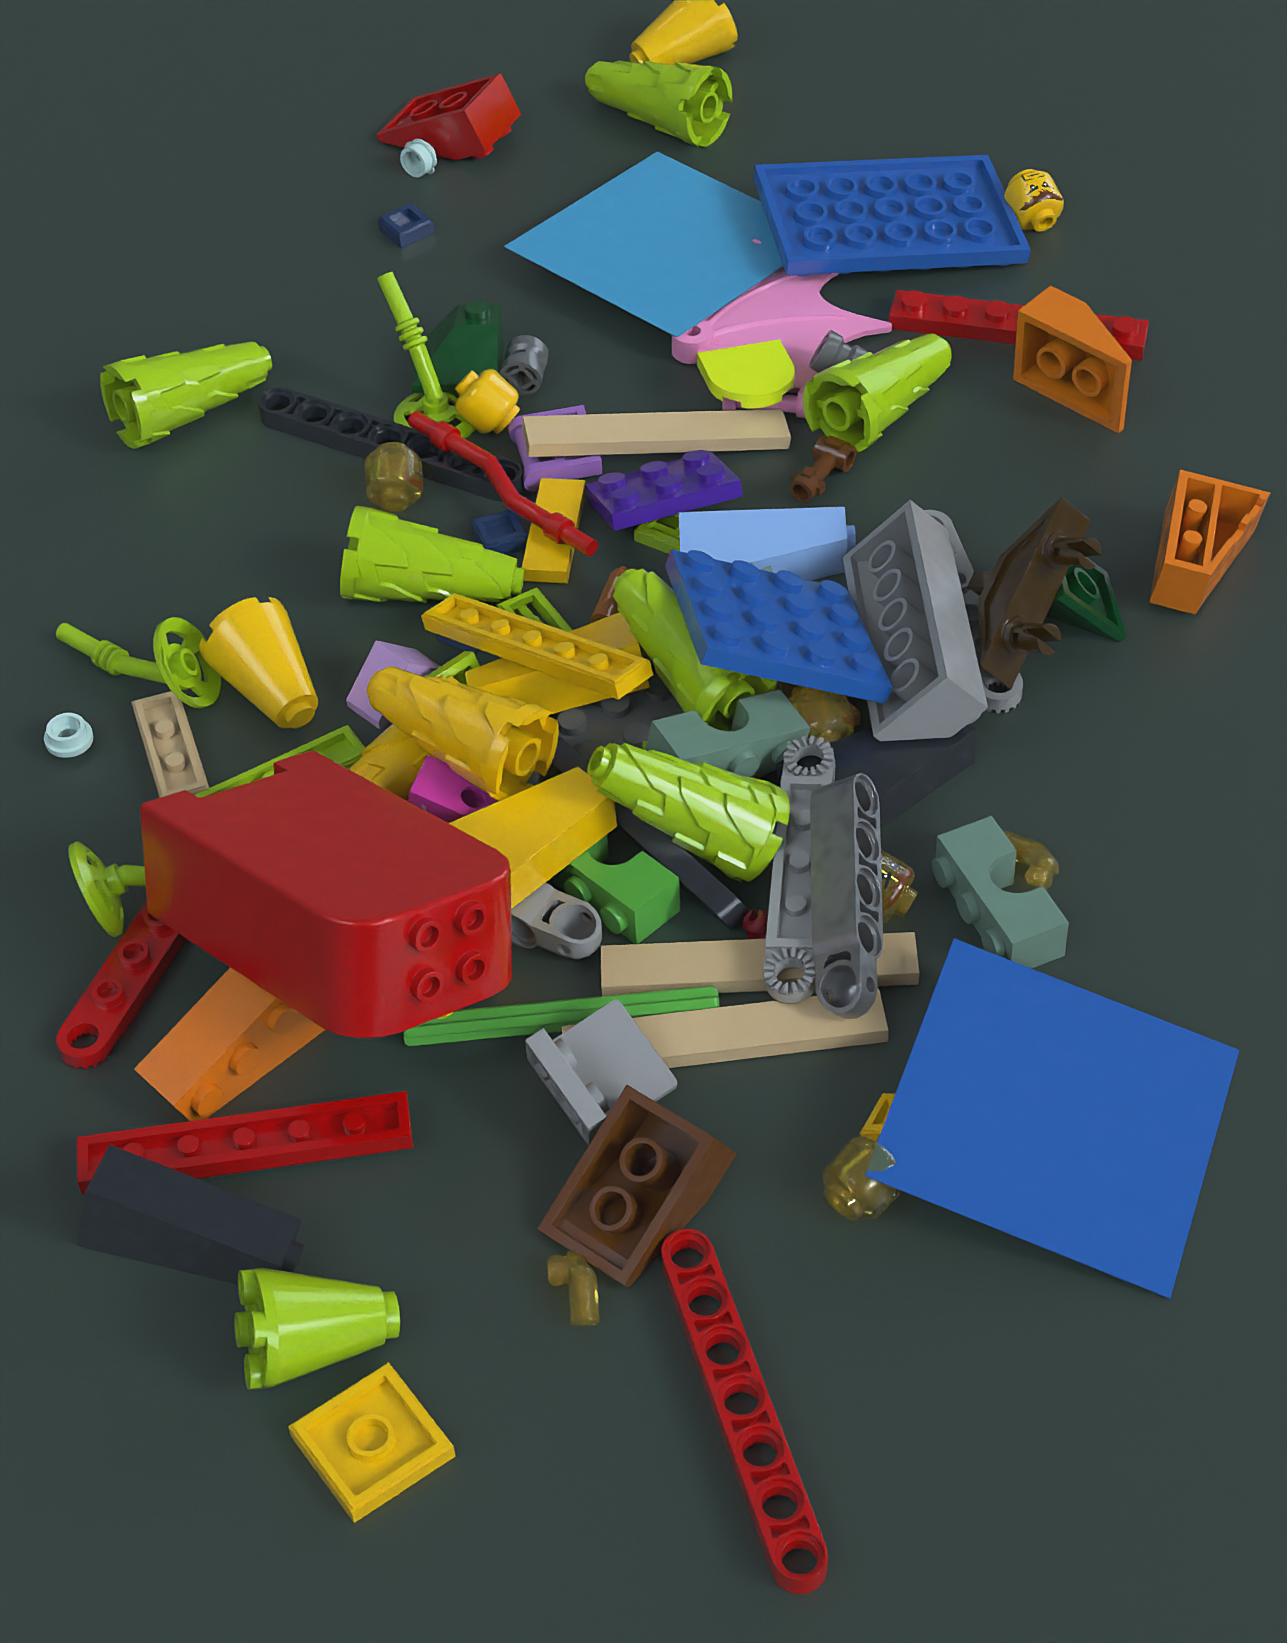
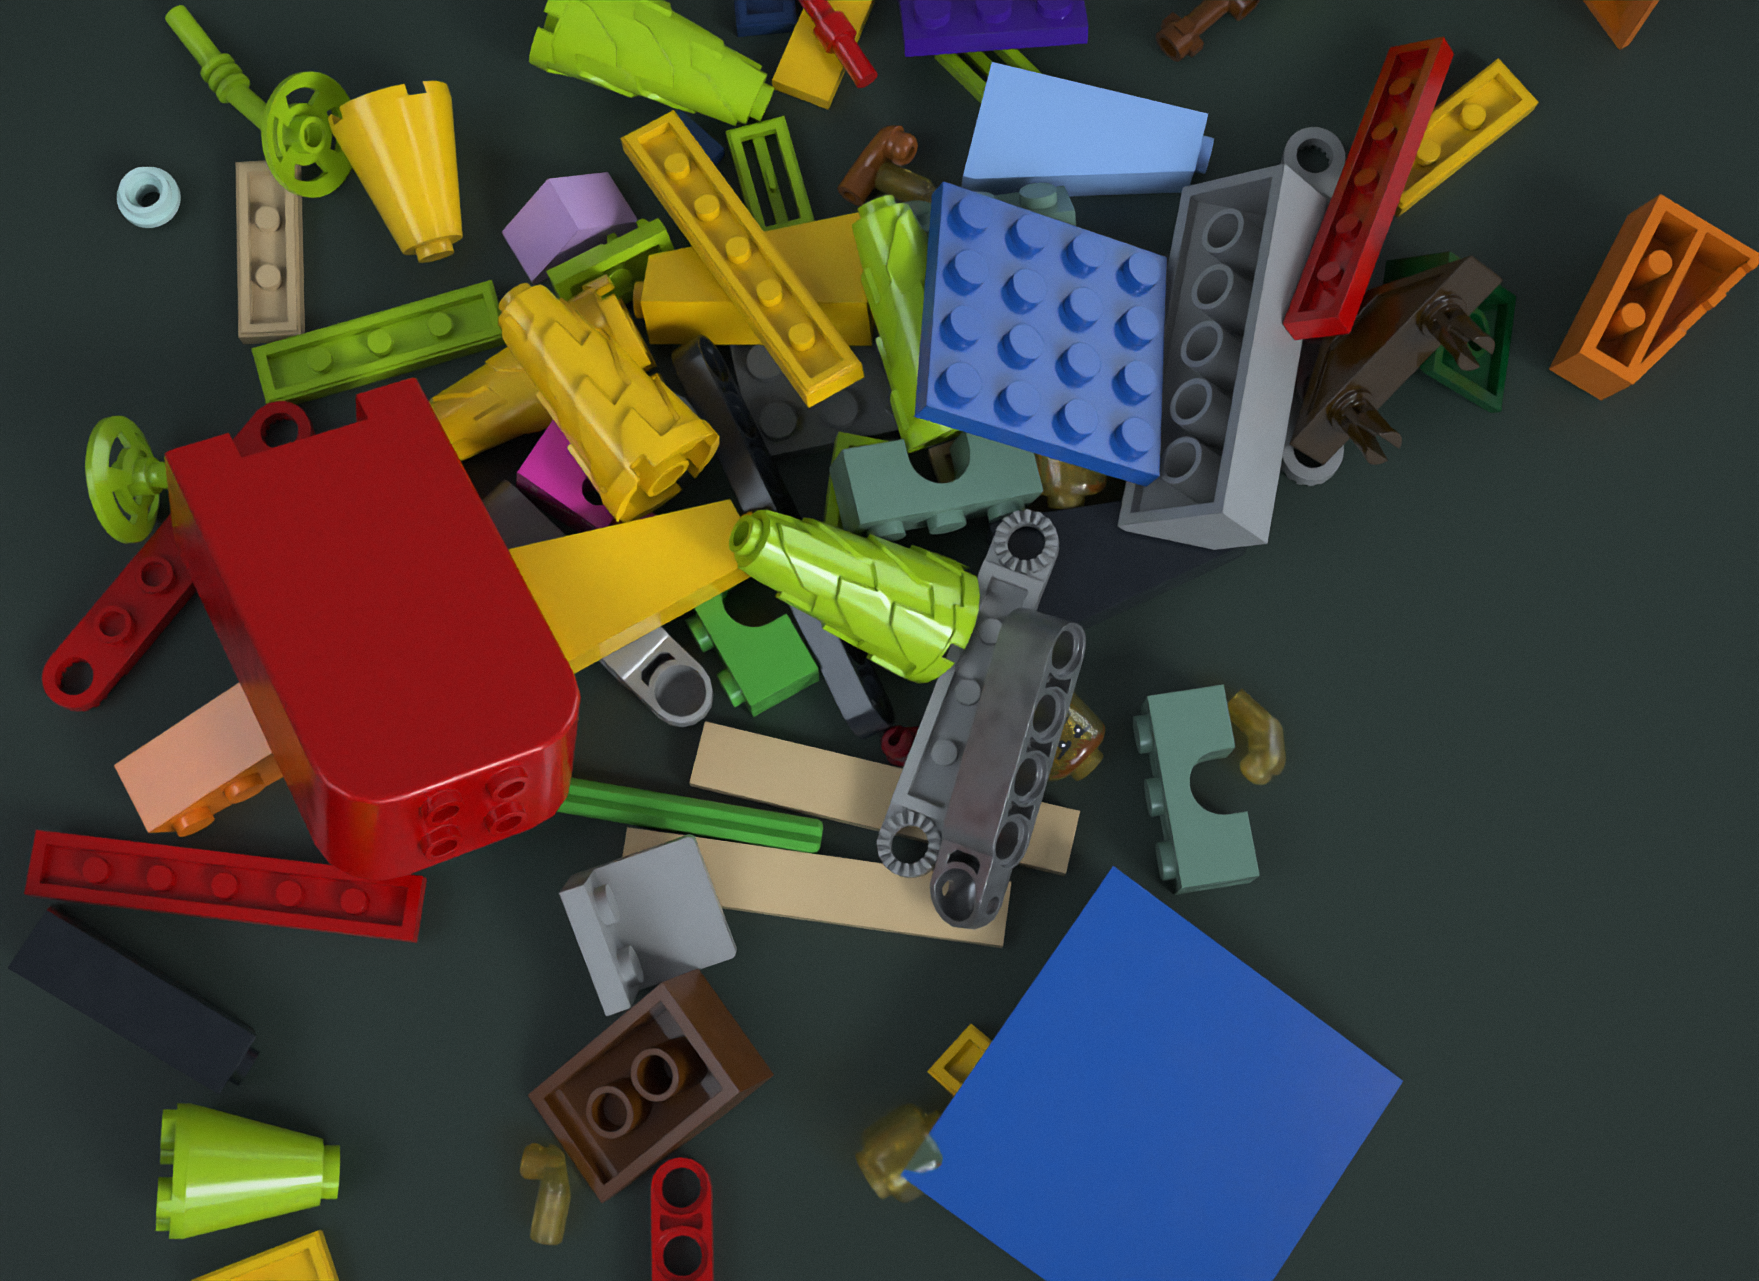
camera: 10 degrees right, 30 degrees up
(975, 518) = (1368, 190): none -> red plate
(1019, 500) = (1465, 127): none -> yellow tile

